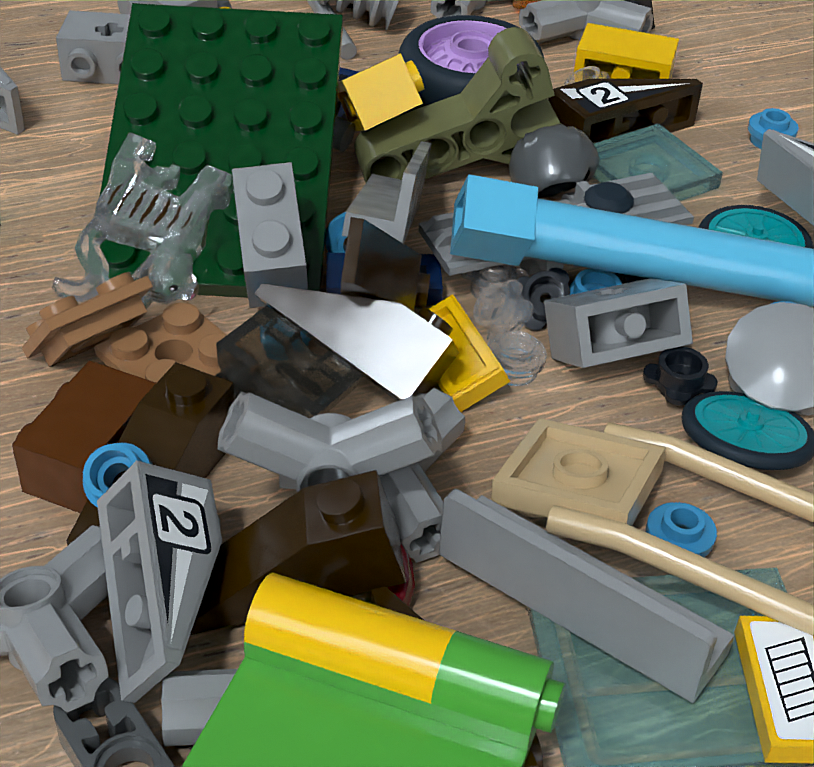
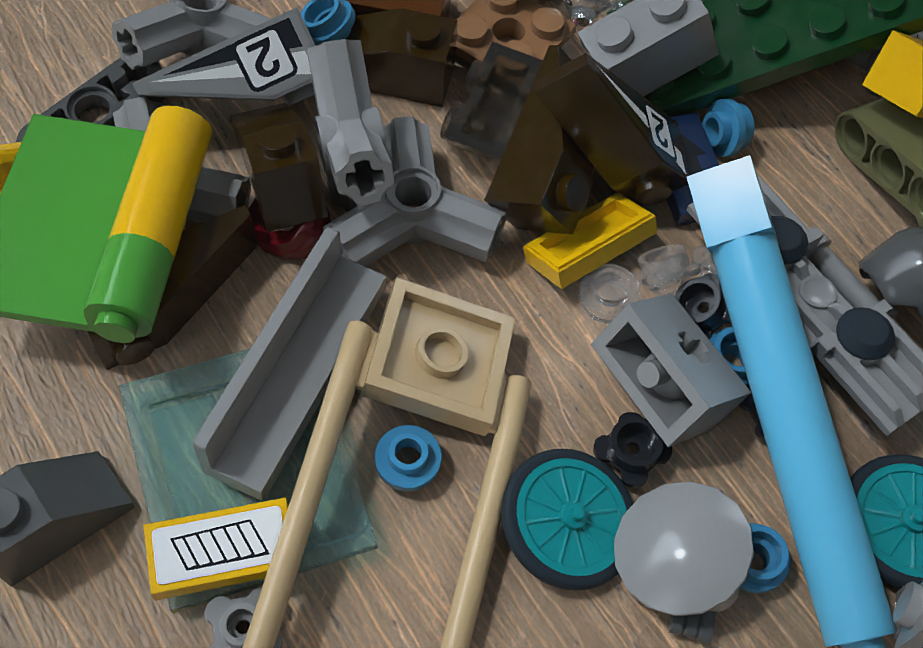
camera: 75 degrees right, 20 degrees up
(392, 201) = (742, 127): light grey panel -> none

